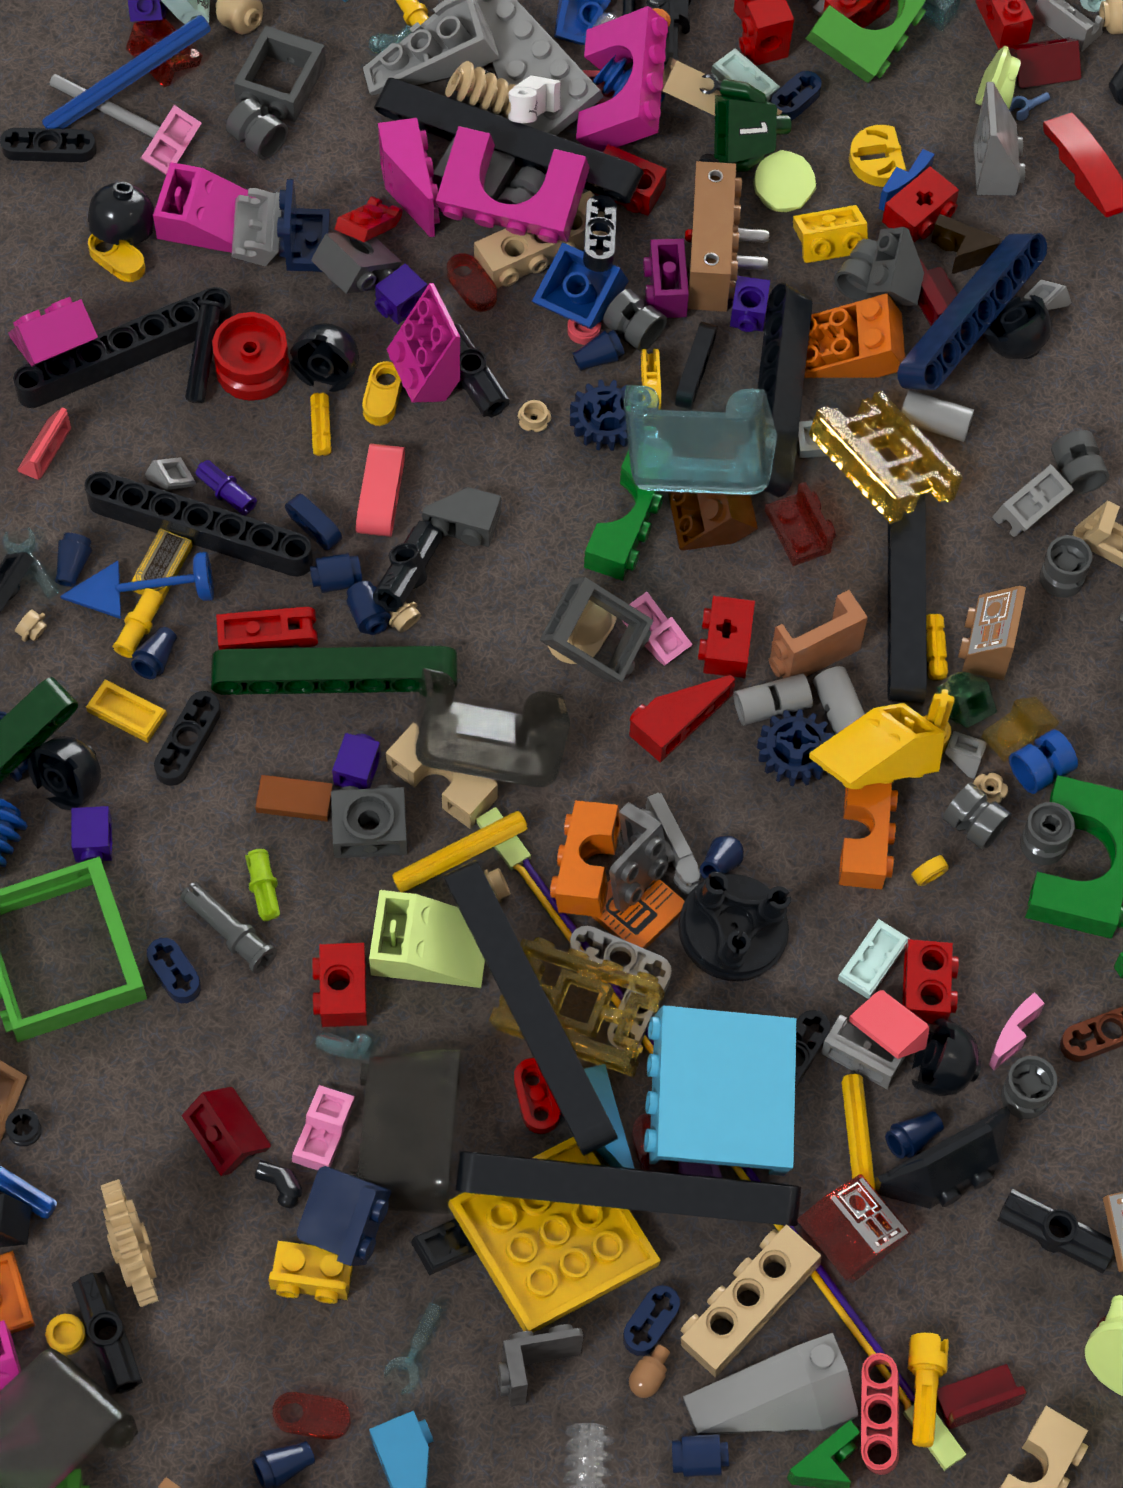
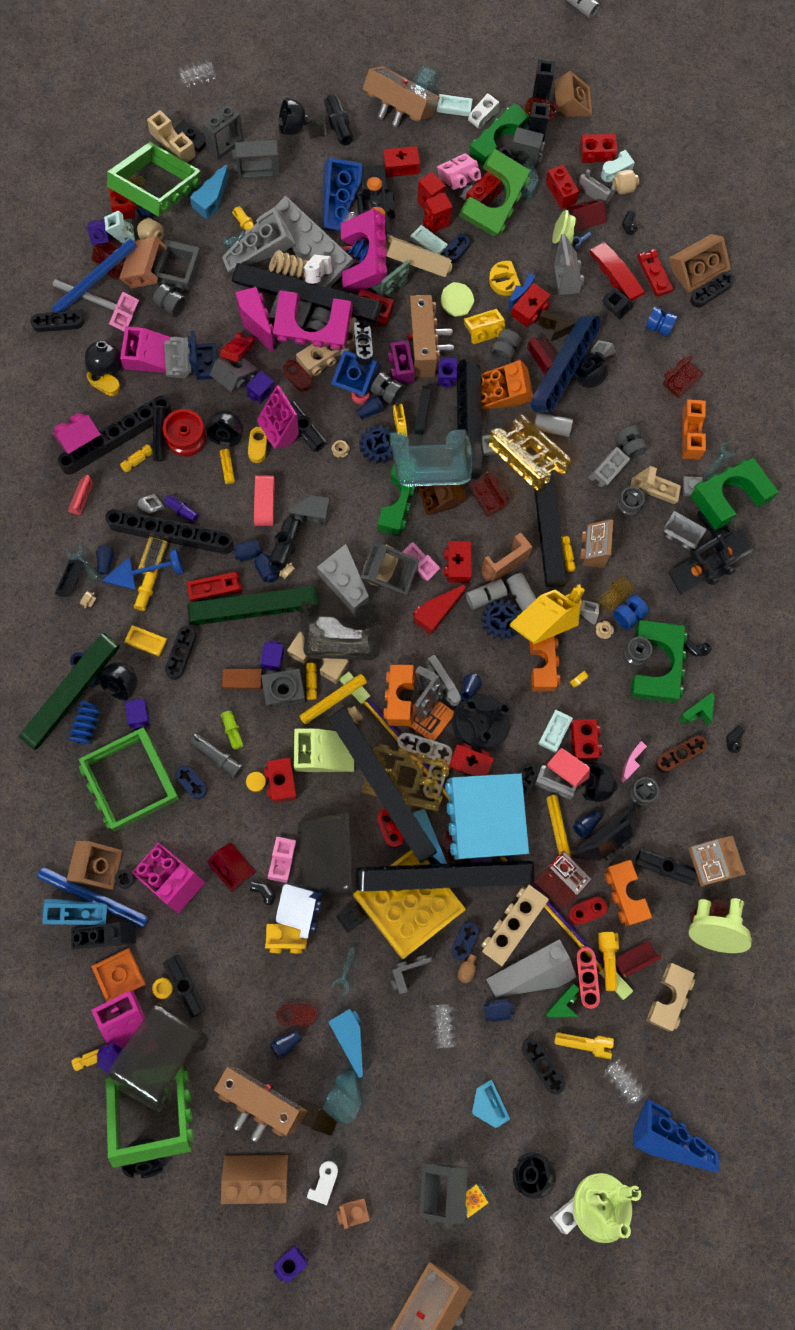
camera: 10 degrees left, 10 degrees up
(106, 1132) = (168, 877): none -> dark pink slope
(129, 1243) = (189, 941): tan gear -> none
(153, 655) = (156, 607): dark blue cone -> none
(156, 392) = (136, 458): none -> yellow axle
(209, 60) = (139, 262): none -> nougat panel
(294, 983) = (256, 782): none -> yellow tile
(313, 521) = (231, 523): dark blue beam -> none
(341, 1047) = (286, 814): clear light blue arm -> none
(423, 816) = (311, 681): none -> yellow axle
(508, 641) = (344, 580): none -> light grey wedge
(673, 133) = (395, 278): none -> sand green bracket
(696, 976) = (461, 765): none -> red brick
(743, 124) = (432, 271): dark green torso -> none
(896, 268) = (523, 344): dark grey slope -> none
(896, 1294) = (588, 911): none -> red plate
(972, 698) = (589, 581): clear green brick -> none
(978, 817) = (600, 646): dark grey wheel -> none
(980, 1303) = (630, 910): none -> orange arch
(1083, 219) = (622, 303): none -> black brick

